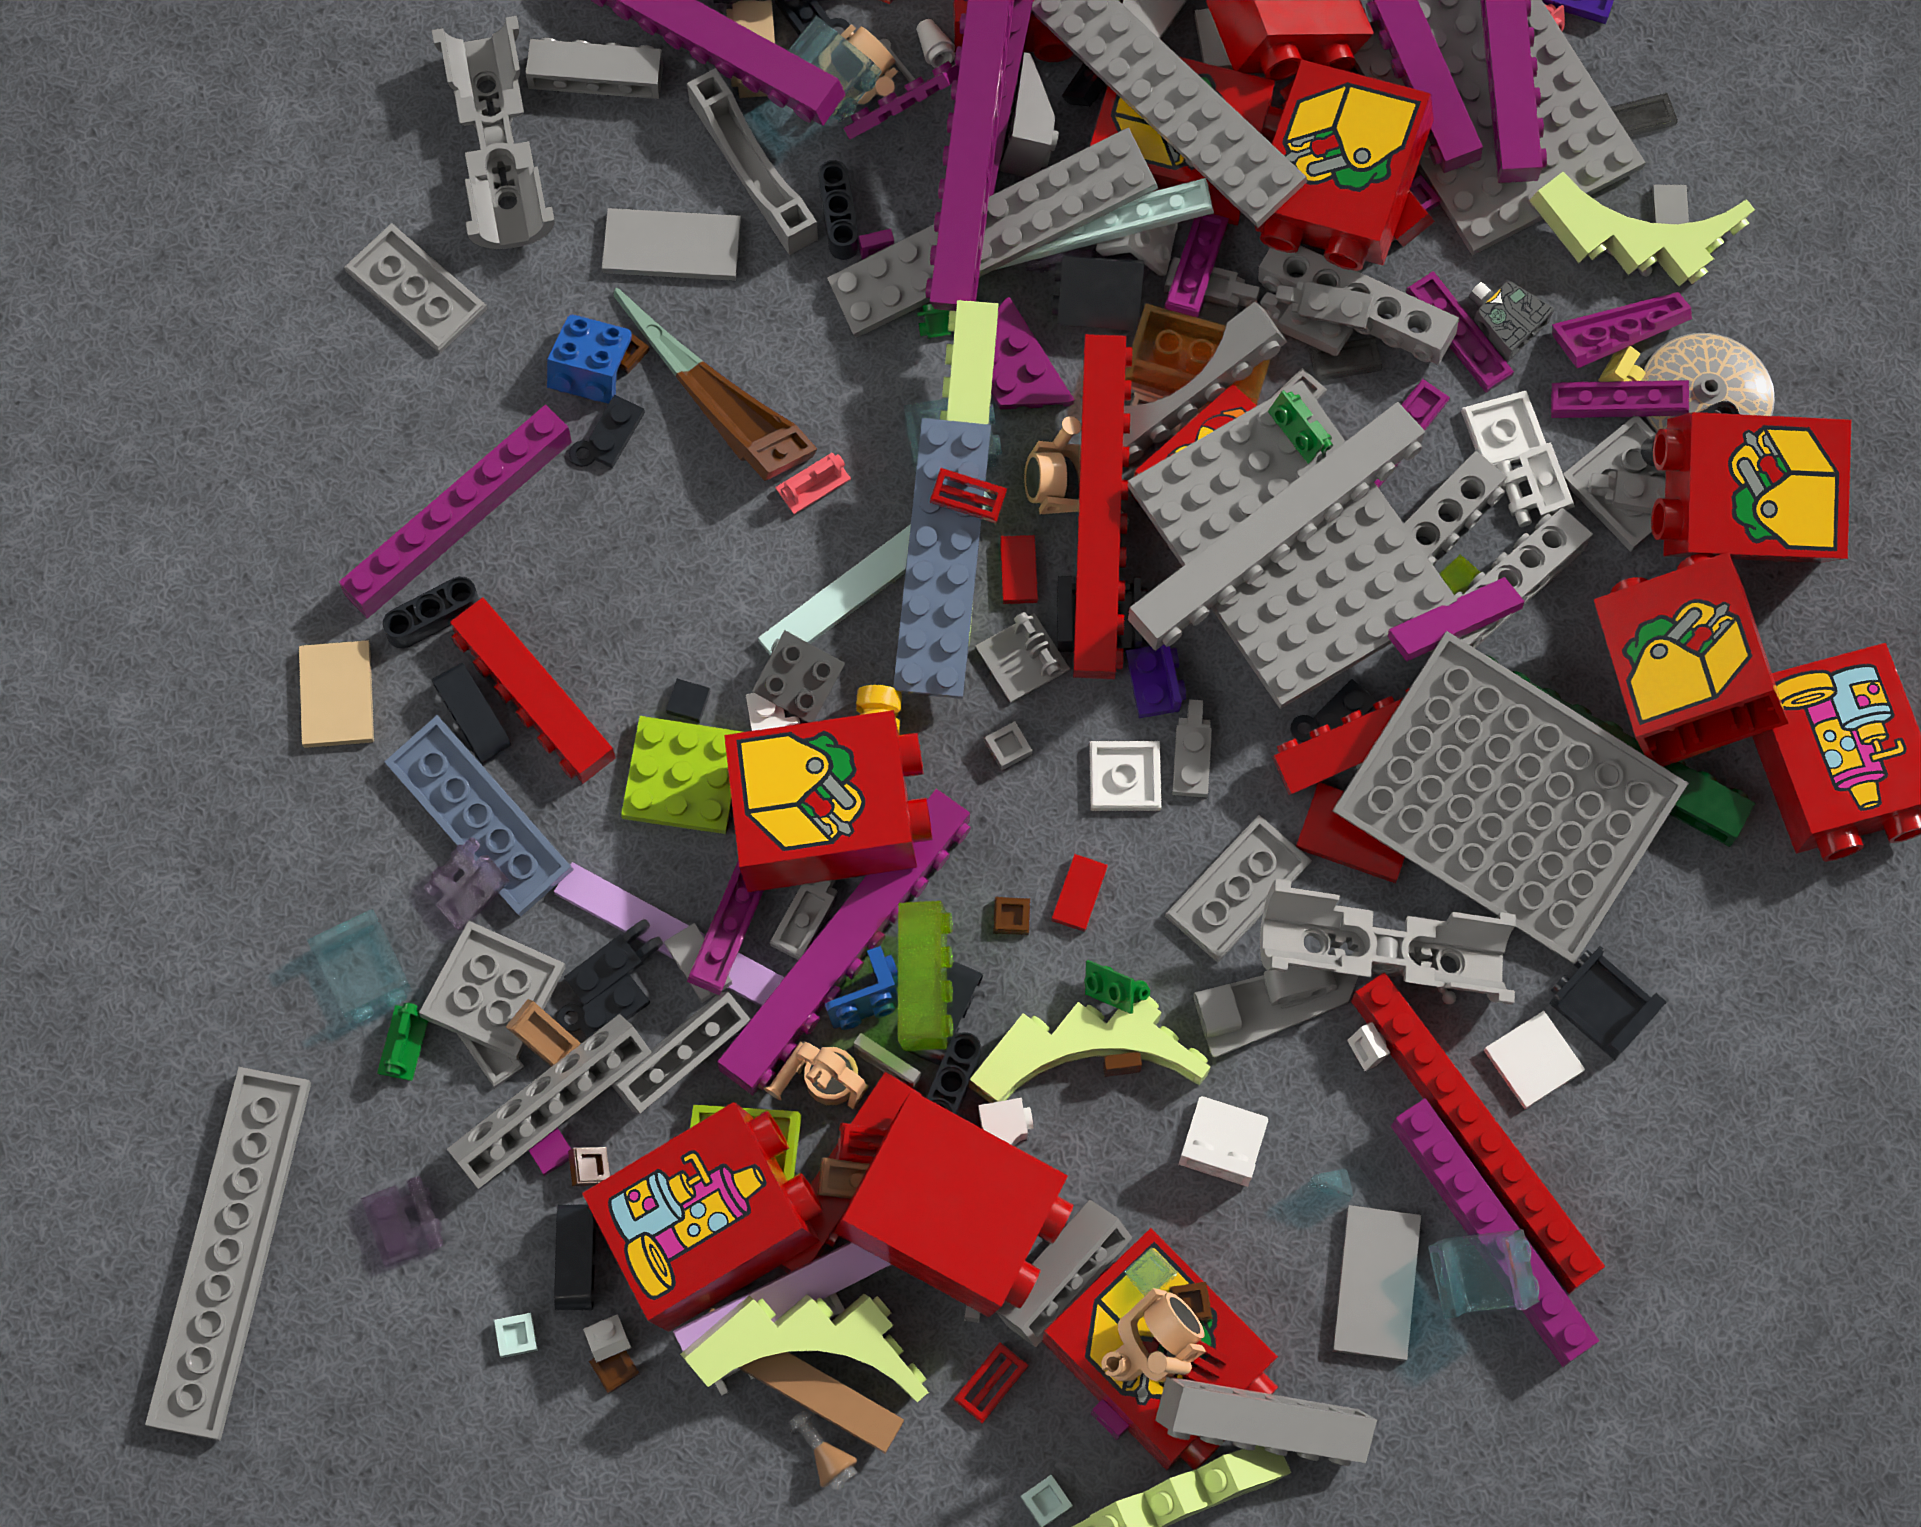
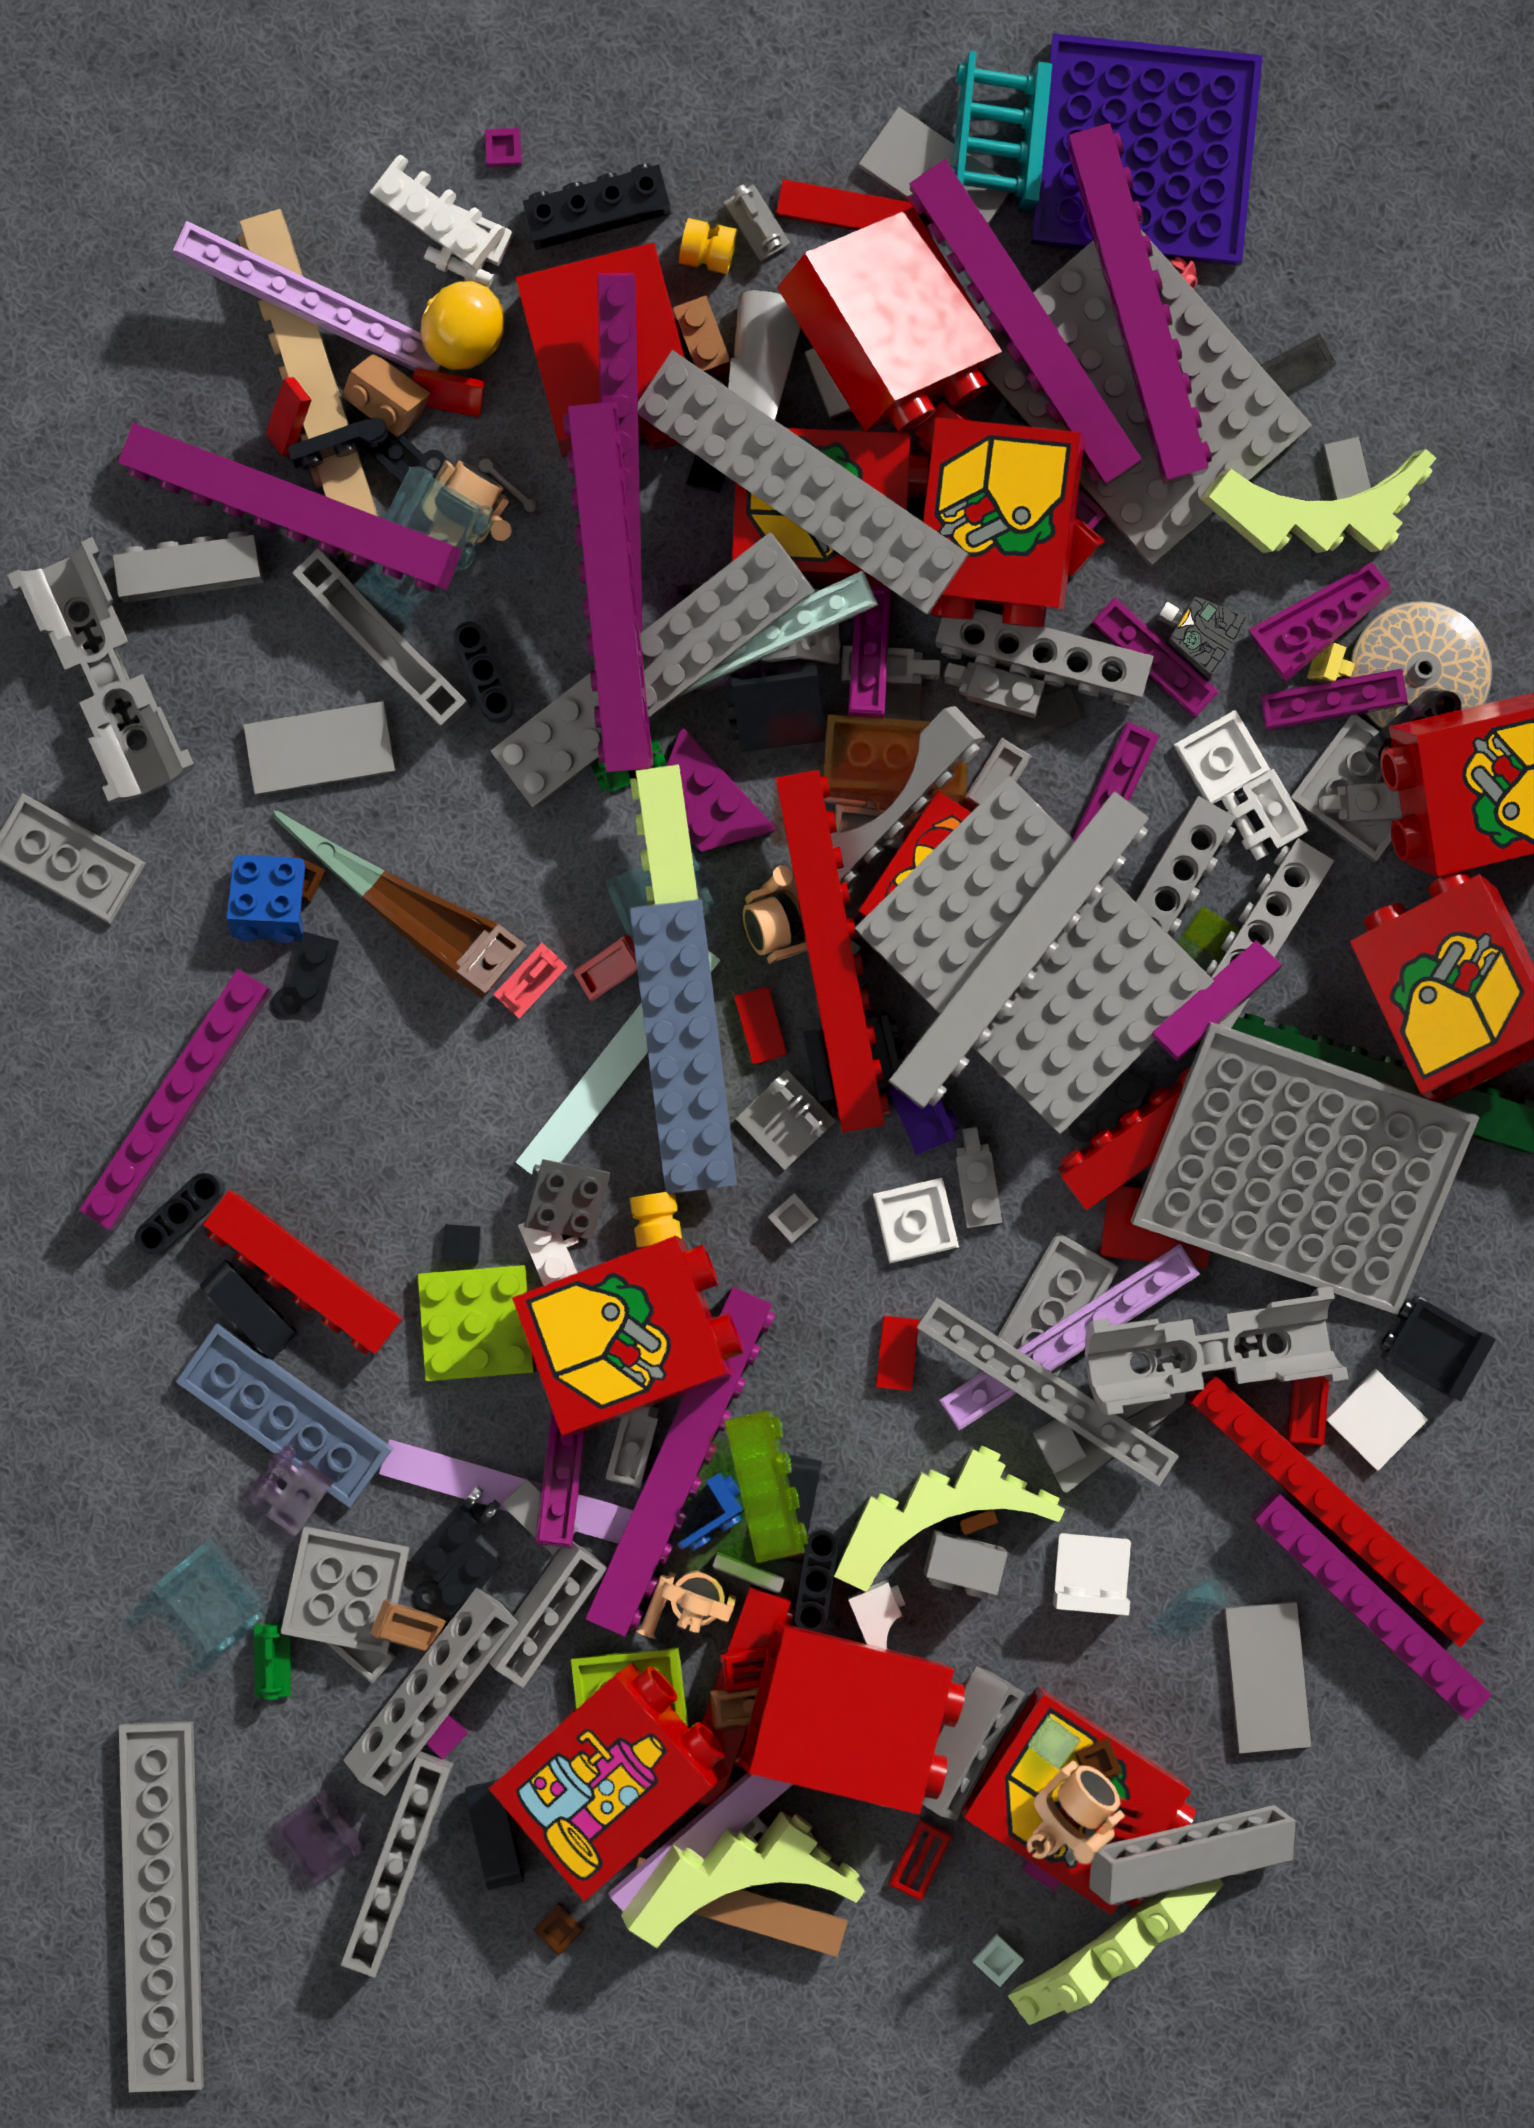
camera: 15 degrees left, 15 degrees up
(336, 694) = (107, 1318): tan tile -> none
(472, 1259) = (397, 1864): none -> light grey brick
(515, 1335) = (457, 1920): light aqua tile -> none
(588, 1165) = (485, 1742): tile -> none
(606, 1338) = (545, 1905): white plate -> none
(833, 1464) = (790, 1974): piece -> none
(875, 242) = (532, 703): magenta tile -> none
(887, 484) = (607, 968): none -> red tile
(891, 104) = (536, 533): magenta wing -> none
(935, 44) = (540, 455): white cone -> none
(965, 508) = (696, 968): red tile -> none
(1011, 916) = (835, 1392): reddish brown tile -> none
(1030, 125) = (664, 535): light grey slope -> none
(1100, 1095) = (964, 1563): none -> light grey brick
(1113, 987) = (953, 1449): green hinge -> none
(1218, 951) = (1047, 1391): none -> light grey plate
(1240, 913) = (1068, 1335): none -> lavender tile
(1292, 417) = (1029, 845): green hinge -> none
(1327, 303) = (1015, 670): light grey hinge -> none
(1368, 1046) = (1214, 1447): white plate -> none
(1470, 1033) = (1308, 1411): none -> red tile
(1484, 1272) = (1369, 1654): clear light blue panel -> none

